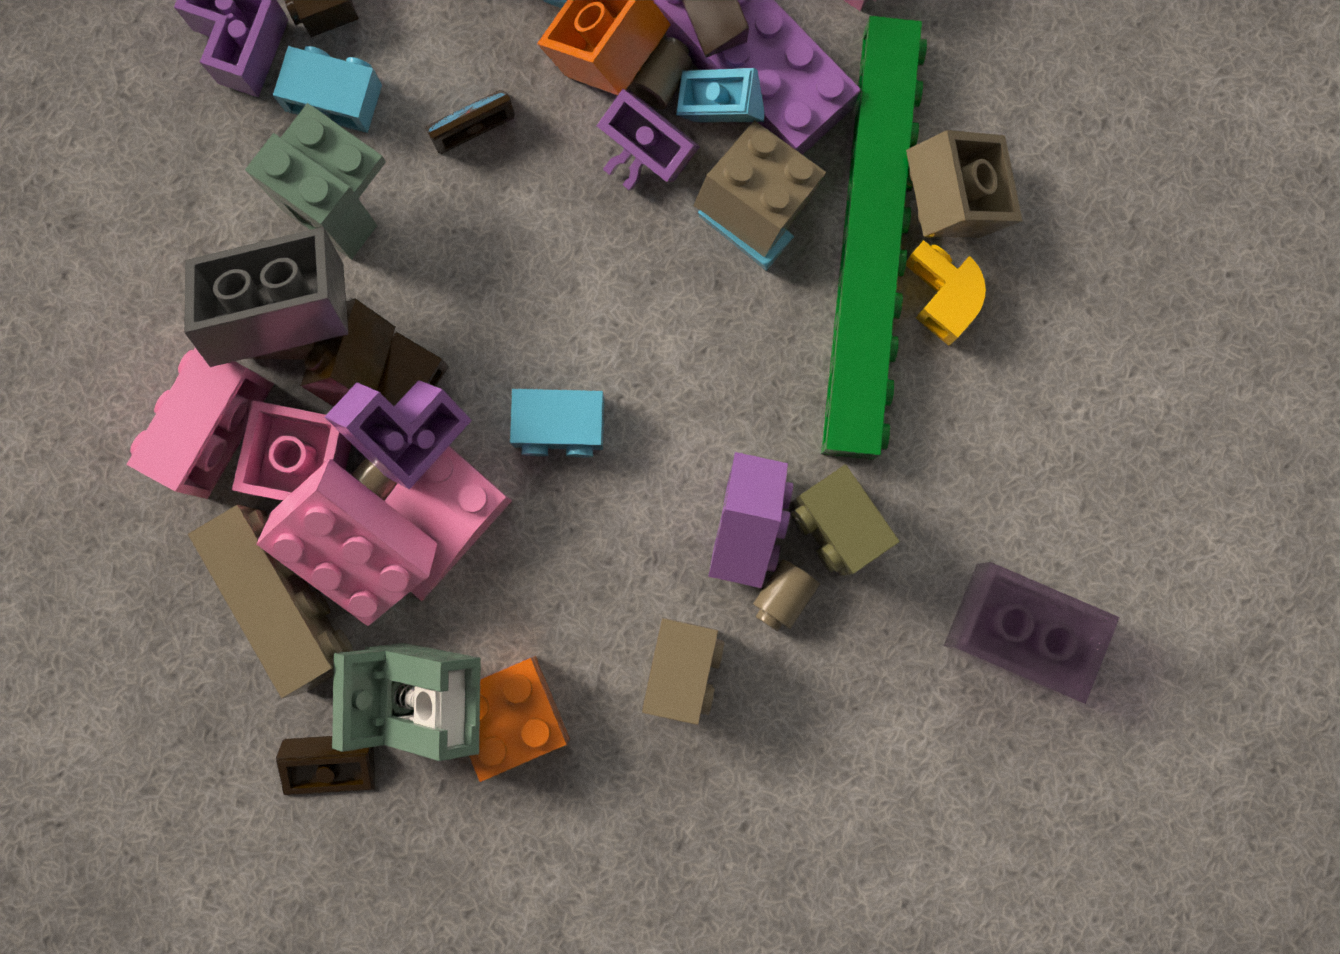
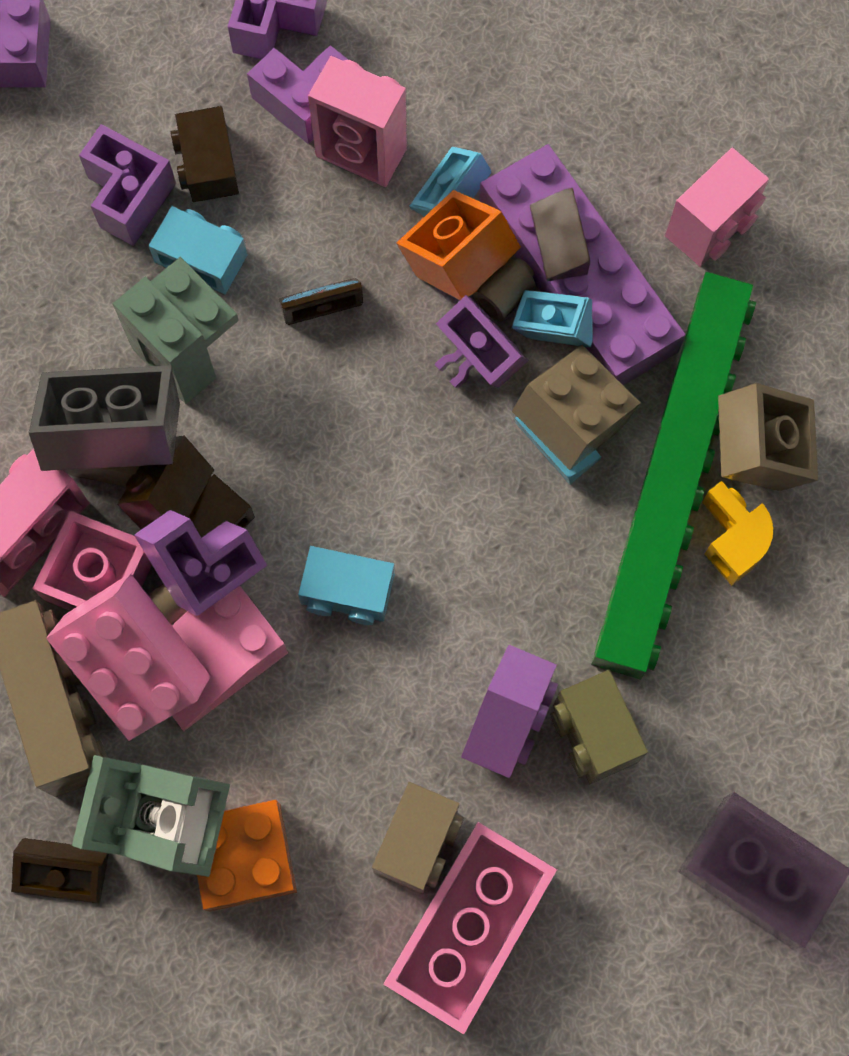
camera: 15 degrees right, 10 degrees down
(749, 747) = (470, 928): none -> bright pink brick
(785, 596) = (531, 791): dark tan brick -> none

